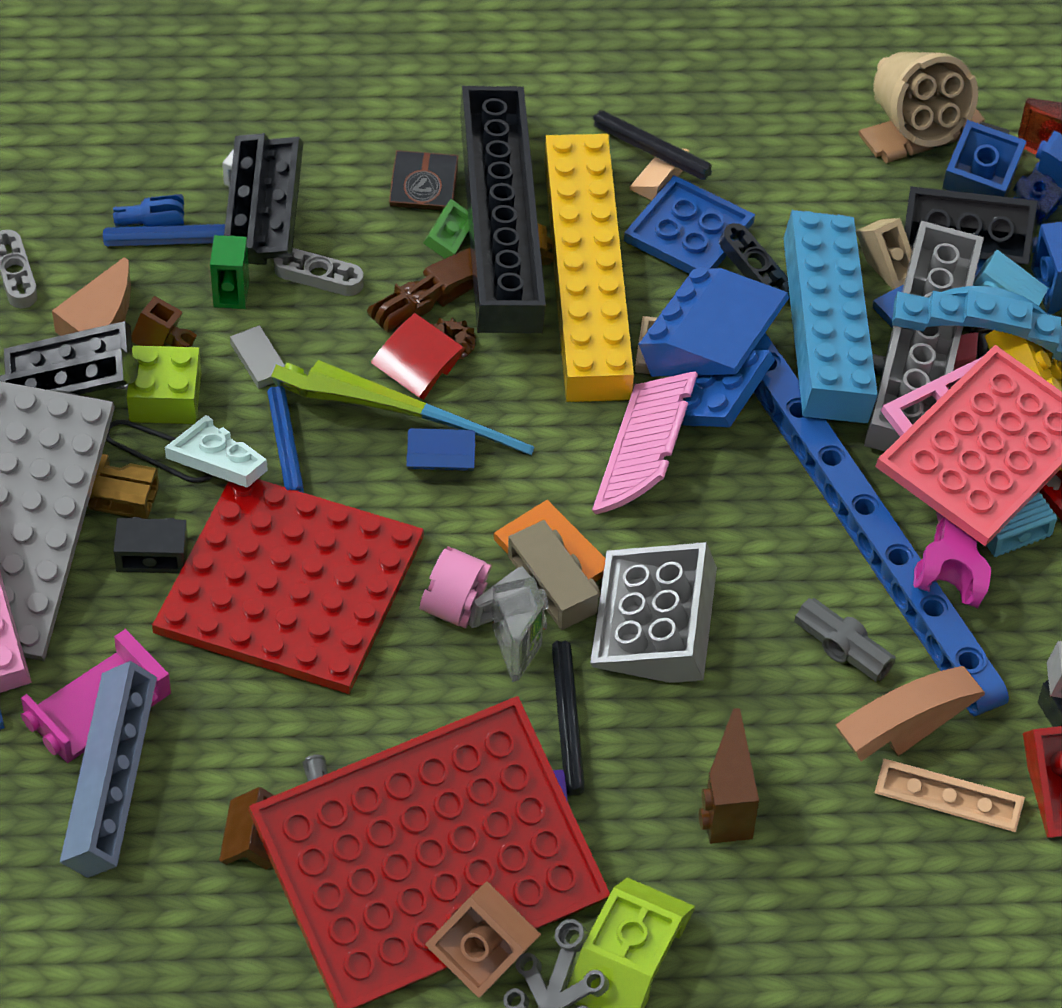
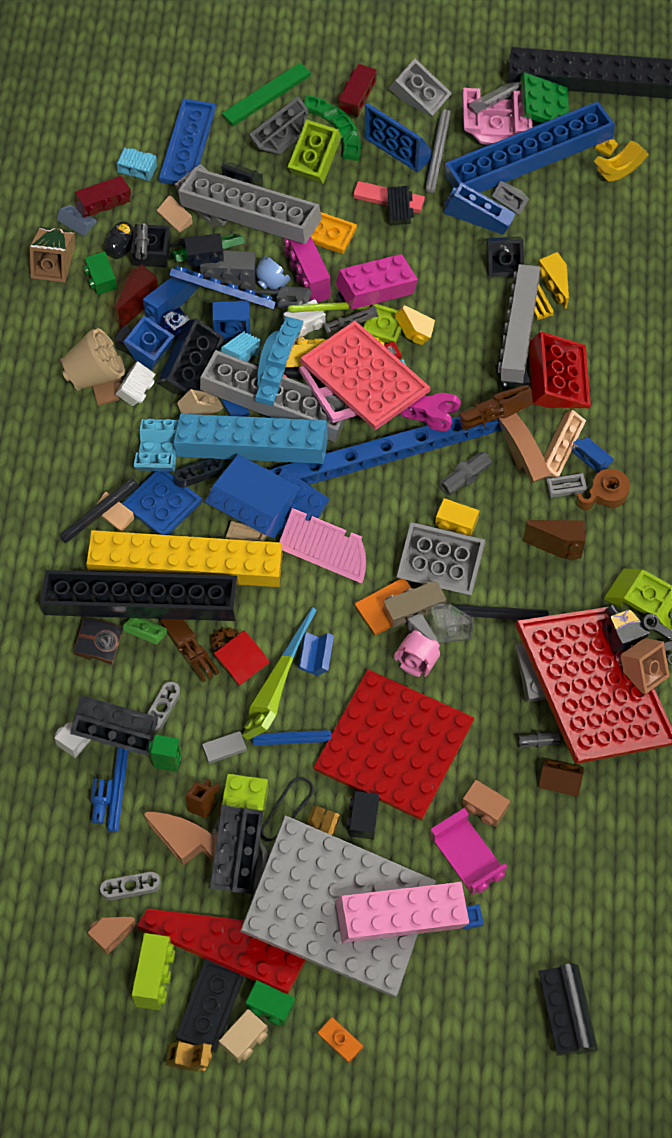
camera: 80 degrees left, 10 degrees up
(108, 770) = (524, 844): sand blue brick -> none
(186, 715) = (485, 803): none -> nougat brick
(217, 454) = (304, 773): light aqua wing -> none
(550, 893) = (623, 629): none -> black torso
(745, 633) = (456, 517): none -> yellow brick
(768, 205) = (157, 445): none -> medium azure slope
(857, 857) = (602, 494): none -> dark orange piece
(869, 831) = (566, 488): none -> light grey tile
(903, 163) = (135, 384): none -> white brick
(938, 843) = (591, 454): none -> blue panel
(985, 661) = (501, 406): none -> reddish brown arm

